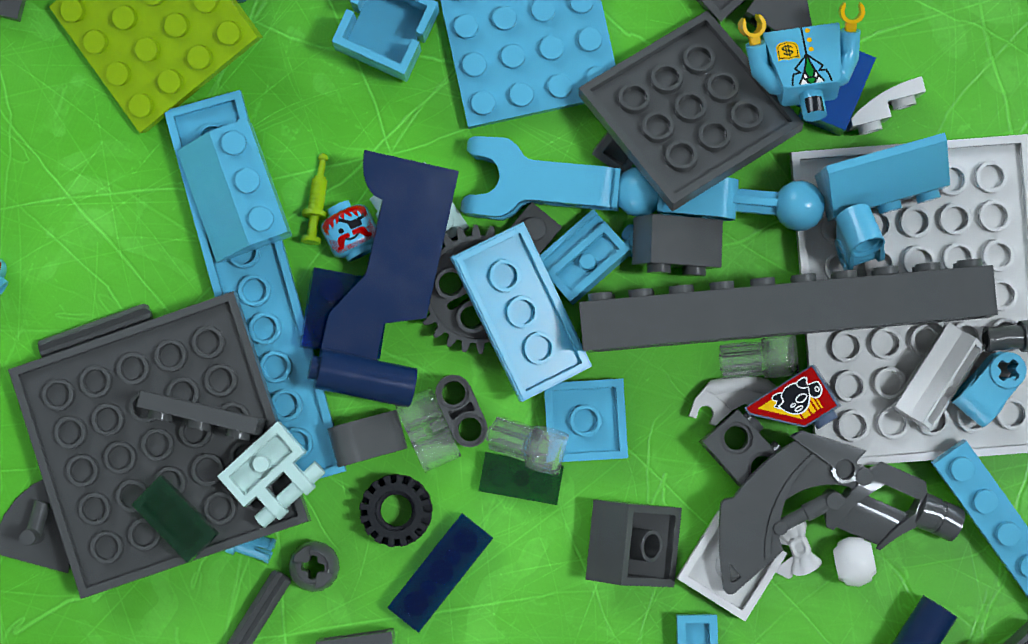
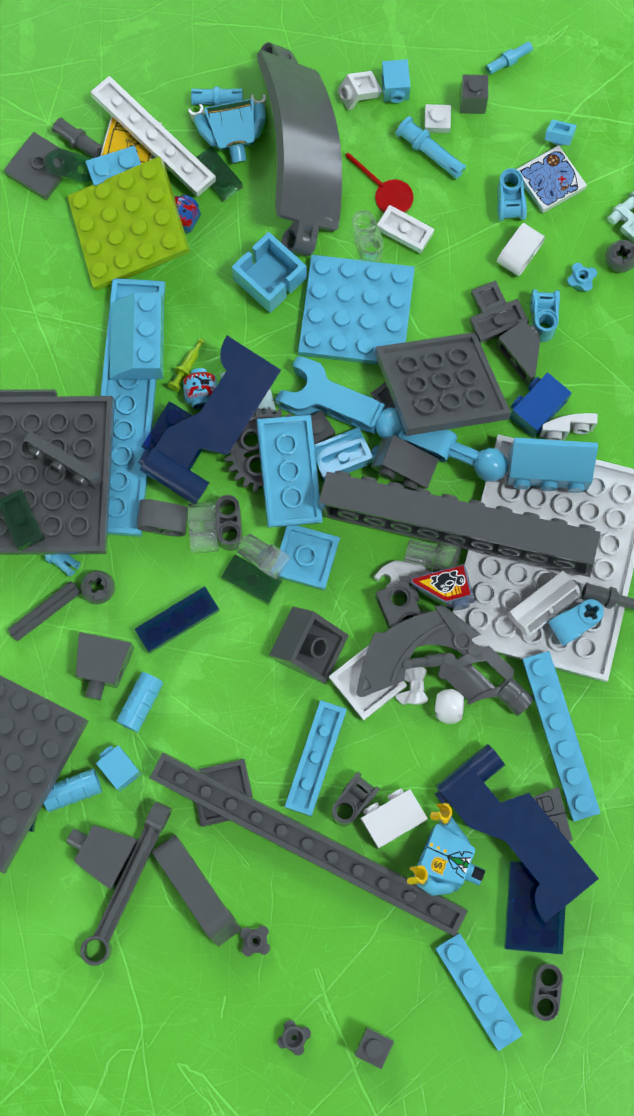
camera: 20 degrees right, 10 degrees down
(262, 465) = (87, 505): light aqua plate -> none
(371, 510) = (152, 559): black tyre -> none
(805, 62) = (524, 375): medium azure torso -> none
(858, 237) = (522, 493): medium azure piece -> none

